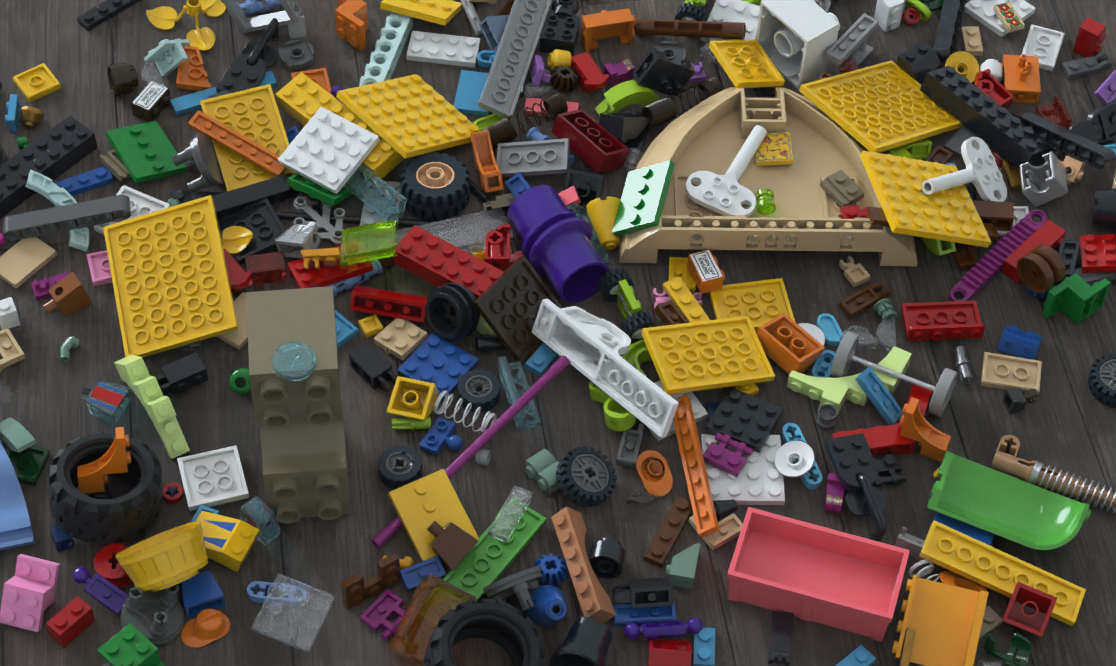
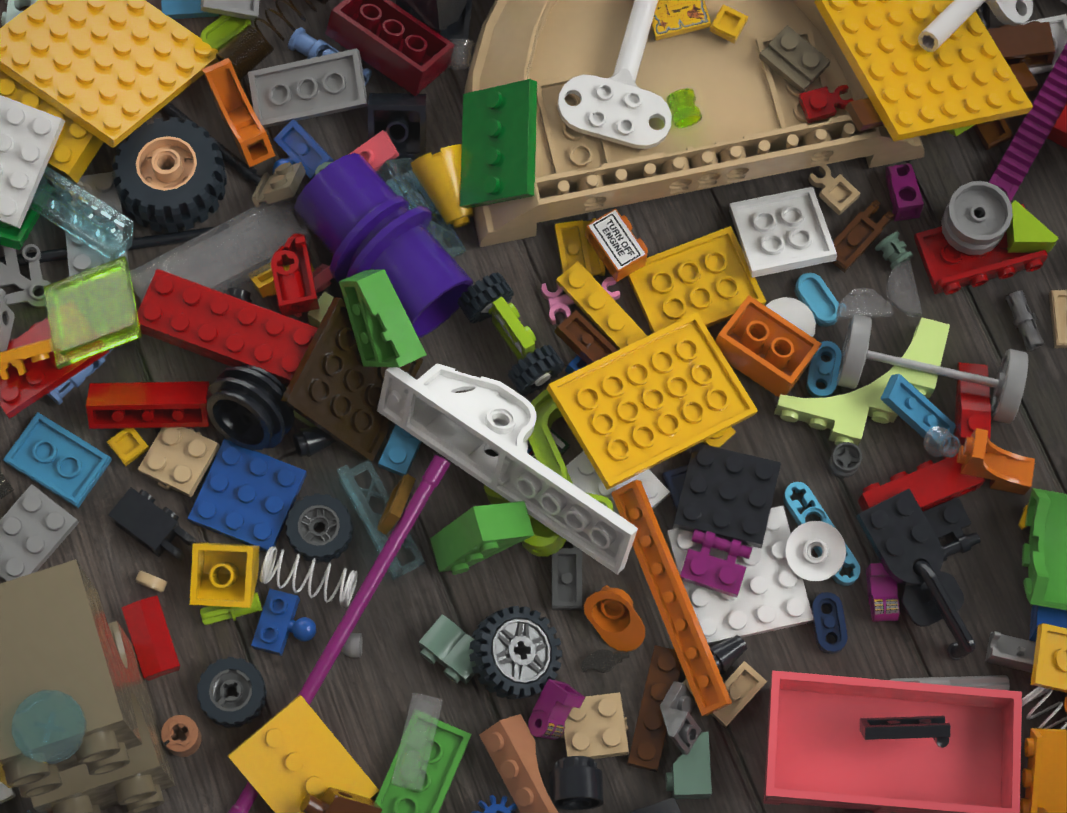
camera: 15 degrees left, 20 degrees up
(357, 428) = (151, 638): none -> red piece
(361, 483) = (181, 735): none -> nougat piece
(365, 398) = (151, 581): none -> tan tile
(528, 382) = (396, 504): none -> pearl gold tile
(544, 272) = (379, 321): none -> bright green wedge
(579, 404) = (480, 535): none -> bright green wedge
(602, 513) = (553, 709): none -> magenta leg
(628, 530) = (597, 728): none -> tan plate
(683, 532) = (677, 718): none -> flat silver slope
(795, 506) = (829, 623): none -> dark blue plate
(804, 163) = (728, 23): none -> yellow tile
(814, 286) = (782, 232): none -> white plate
(848, 556) = (906, 727): none -> black hinge
(885, 415) = (935, 439): none -> clear piece
(899, 282) = (904, 192): none -> magenta leg
(941, 297) = (976, 217): none -> light grey wheel
(974, 312) = (1027, 233): none -> lime slope

